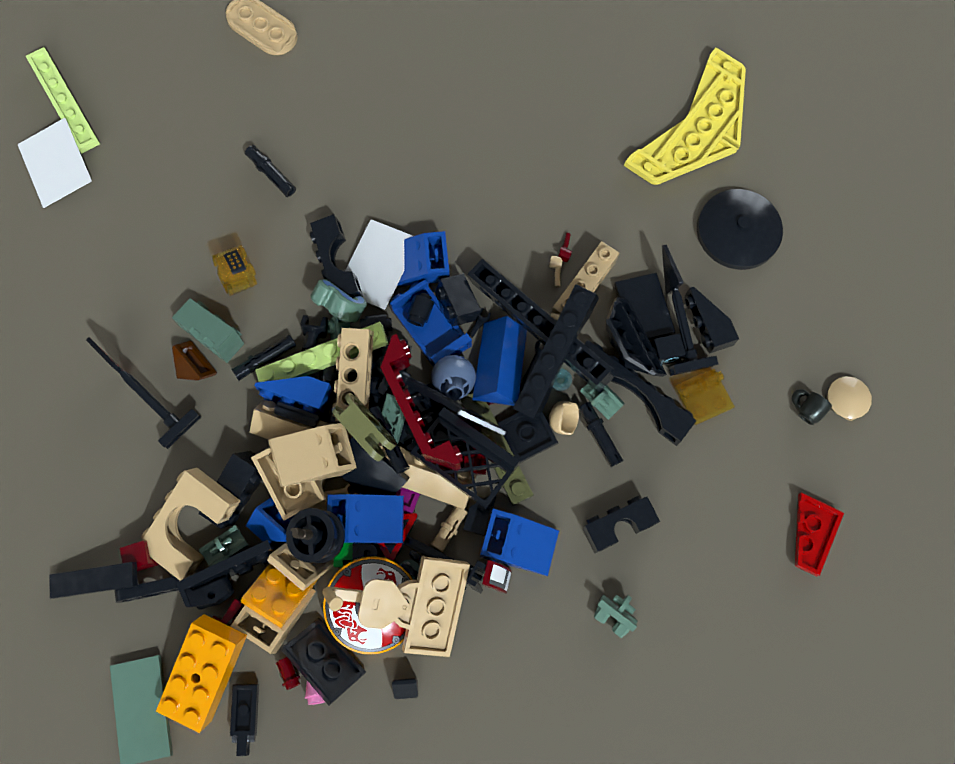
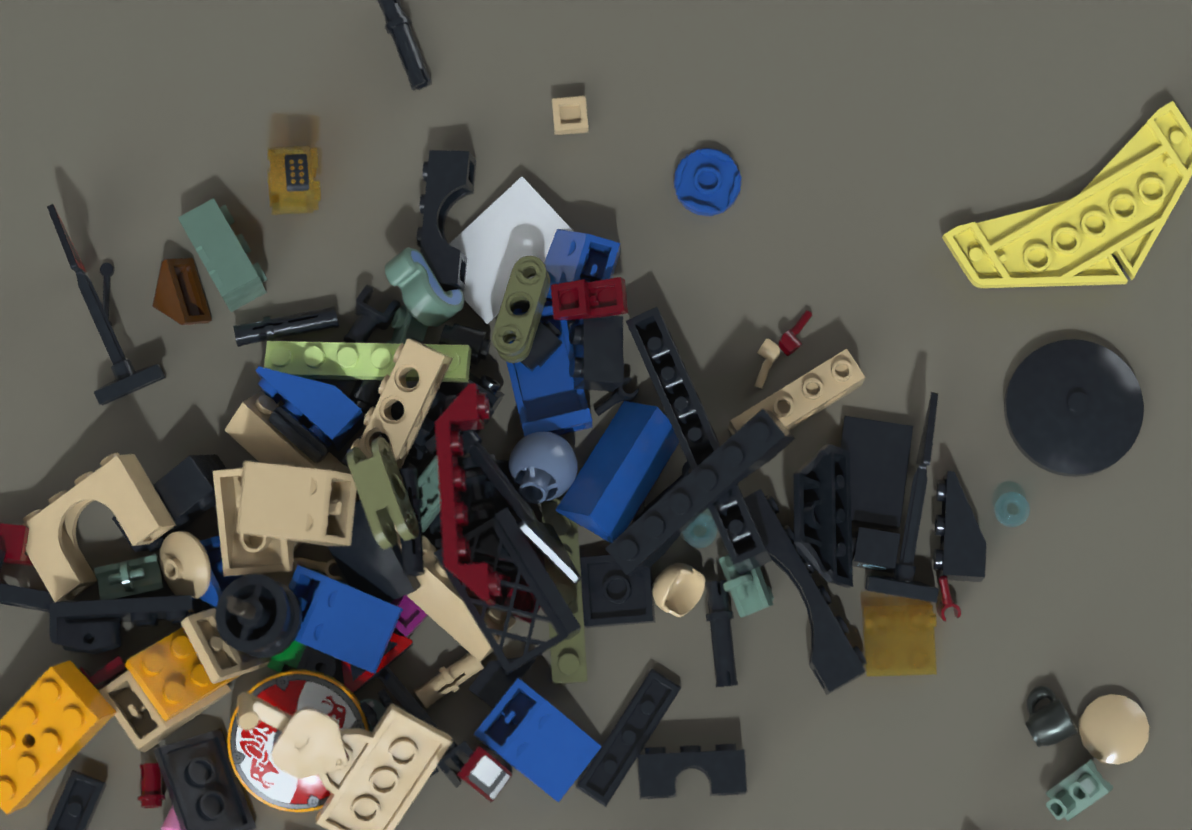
camera: 25 degrees right, 5 degrees up
(140, 367) = (107, 271): none -> black hinge
(256, 523) = (185, 564): none -> tan dish
(384, 176) = (570, 115): none -> tan plate
(405, 303) = (521, 291): none -> olive piece
(440, 269) = (589, 299): none -> dark red slope
(478, 184) = (707, 182): none -> blue tile
(572, 519) = (628, 737): none -> black tile
(720, 368) = (946, 599): none -> dark red hand
(733, 303) = (1006, 518): none -> clear light blue plate
(849, 440) = (1077, 792): none -> sand green hips

